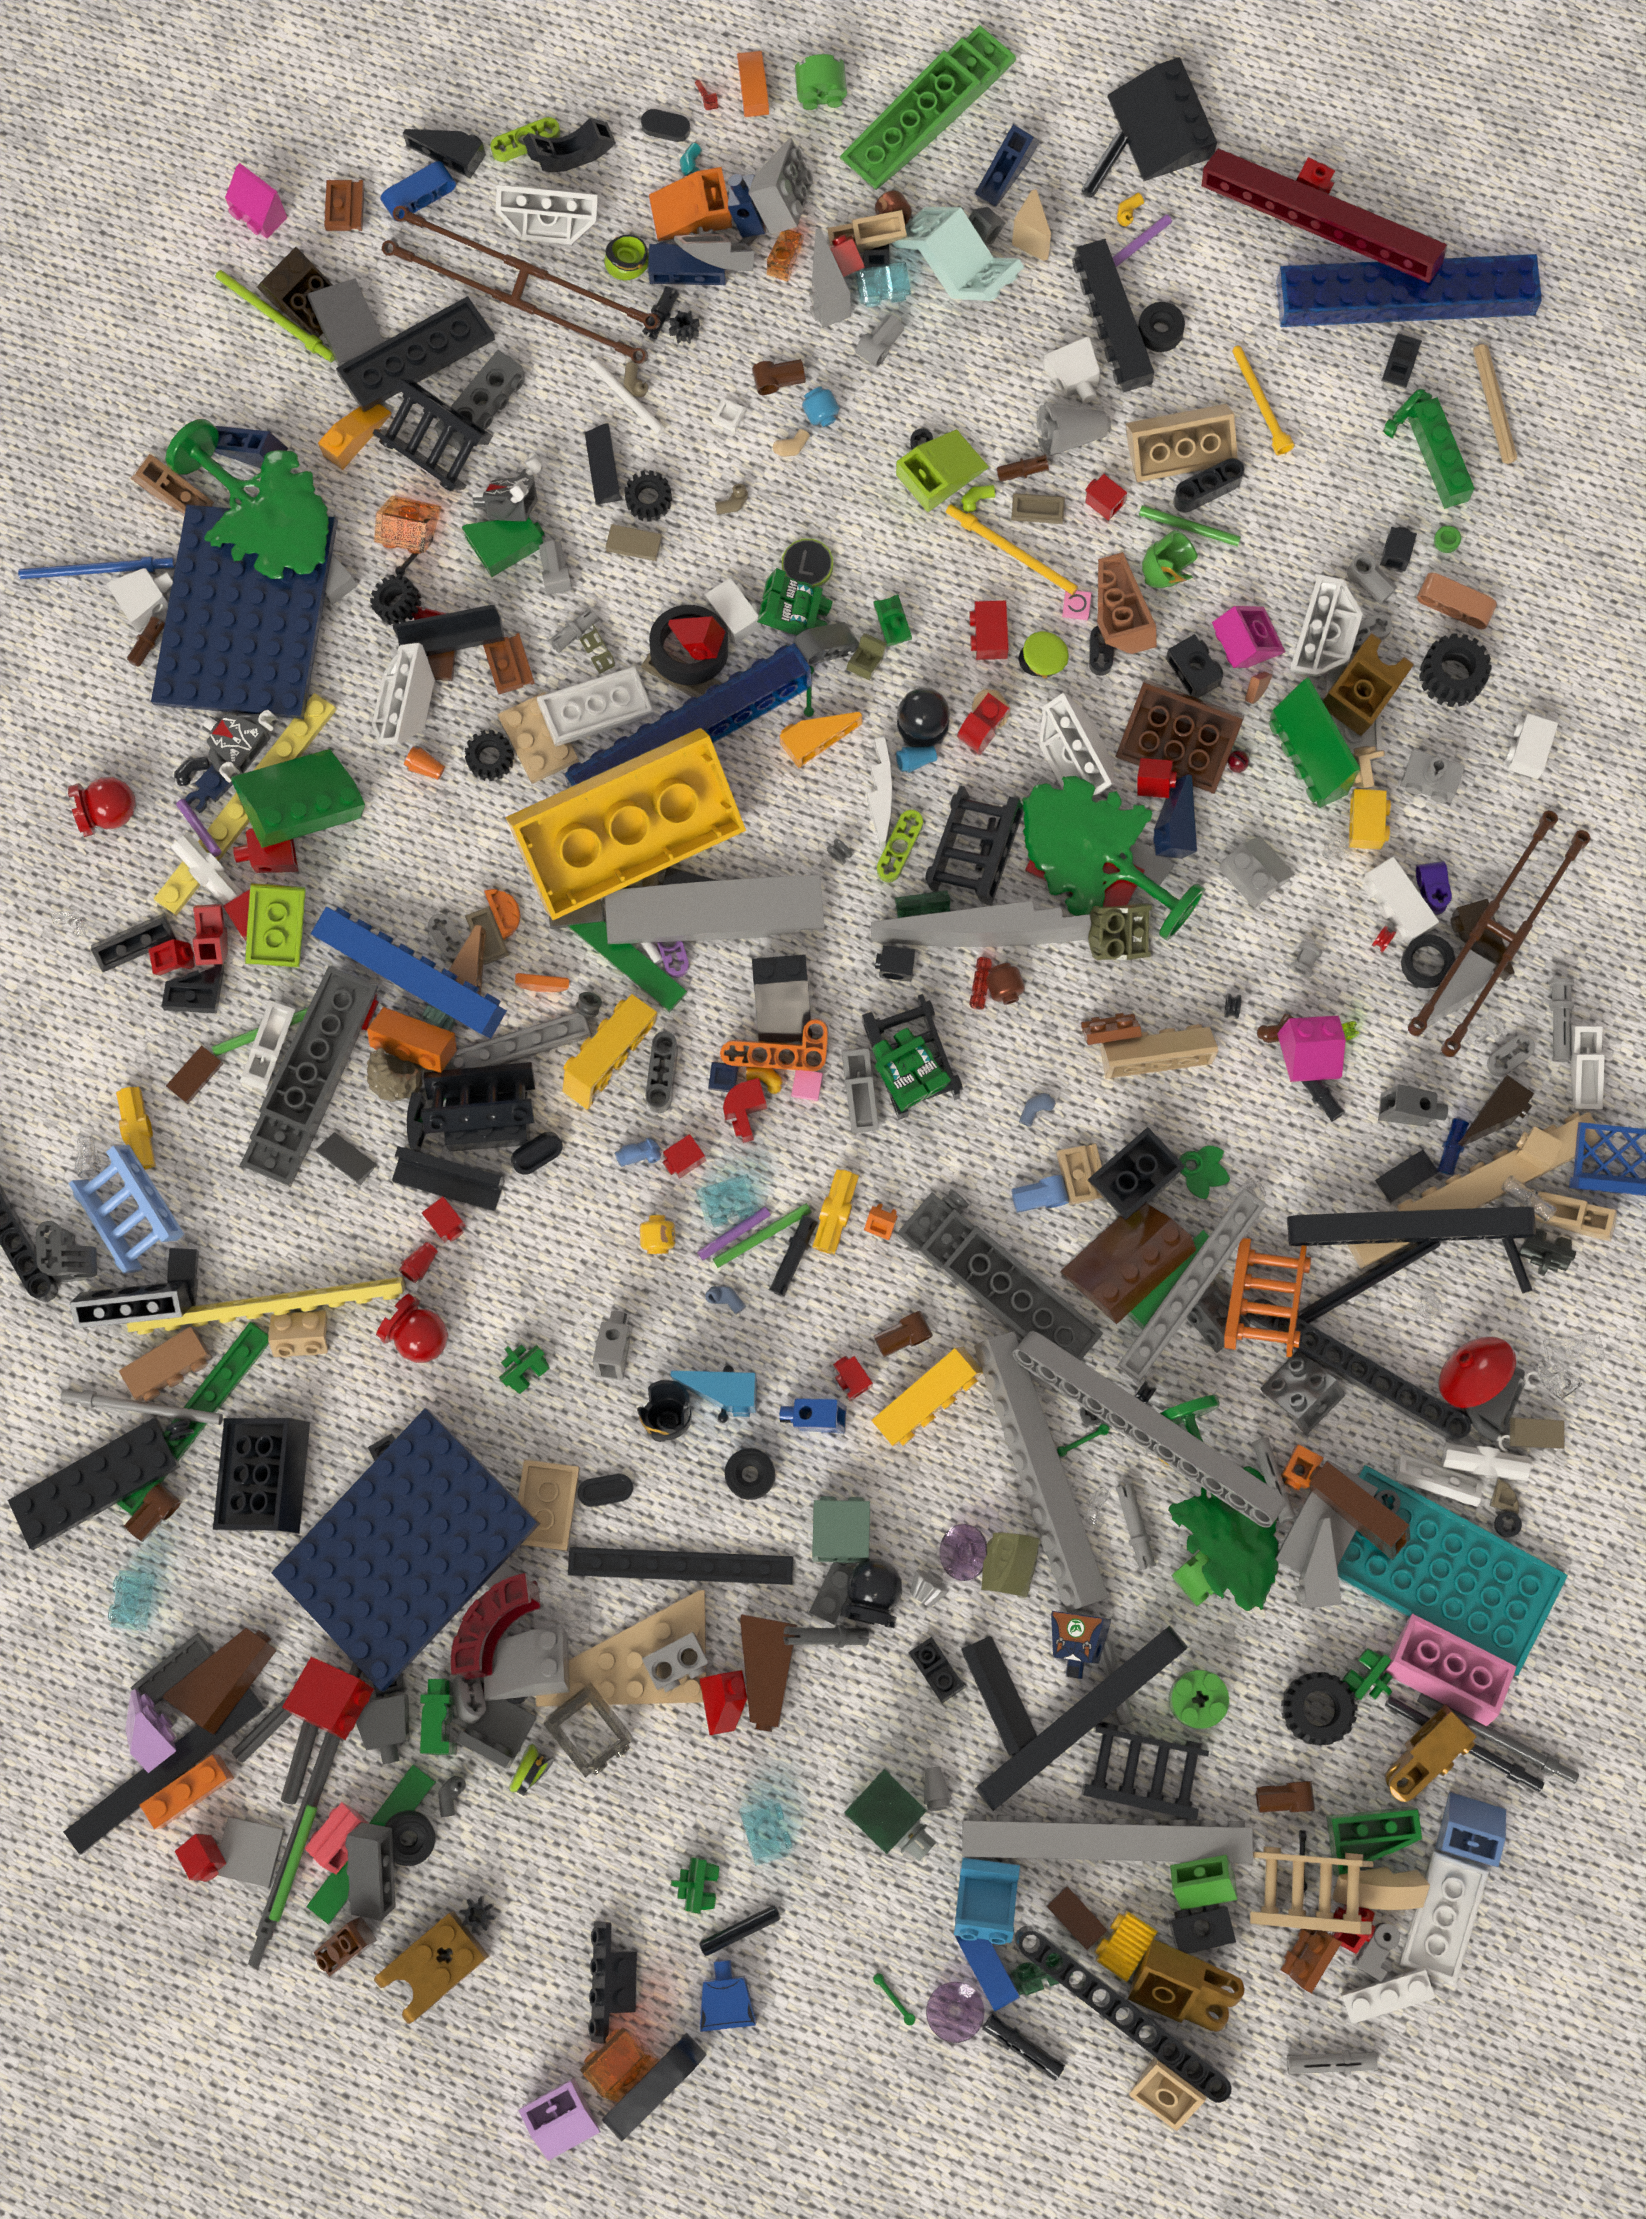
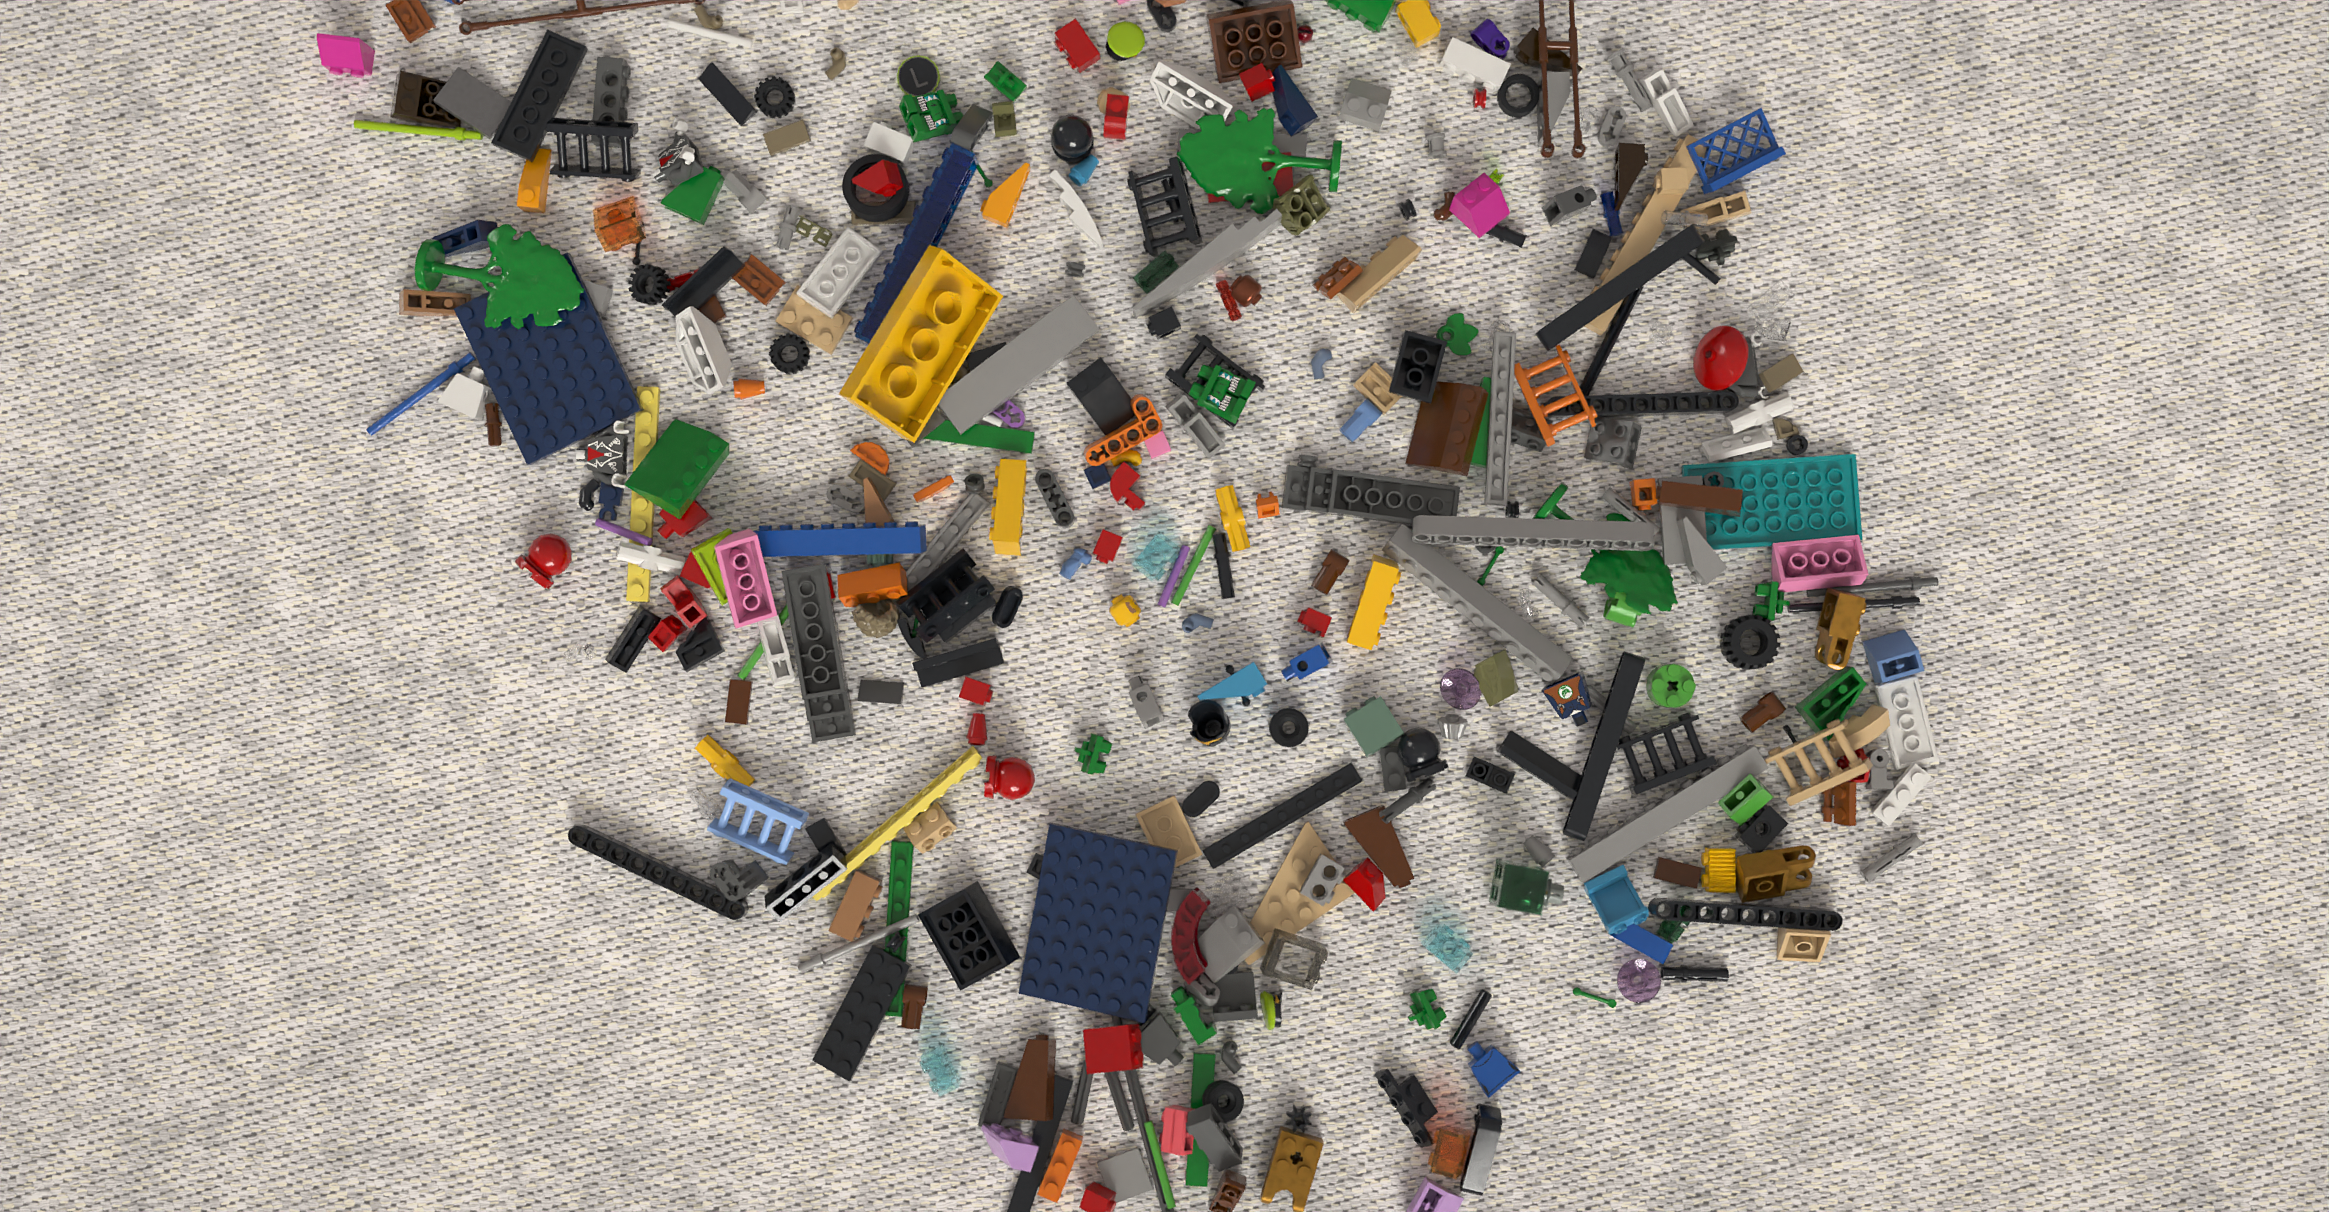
camera: 35 degrees left, 10 degrees up
(284, 947) = (745, 578): none -> bright pink slope
(900, 826) = (1116, 223): lime beam -> none

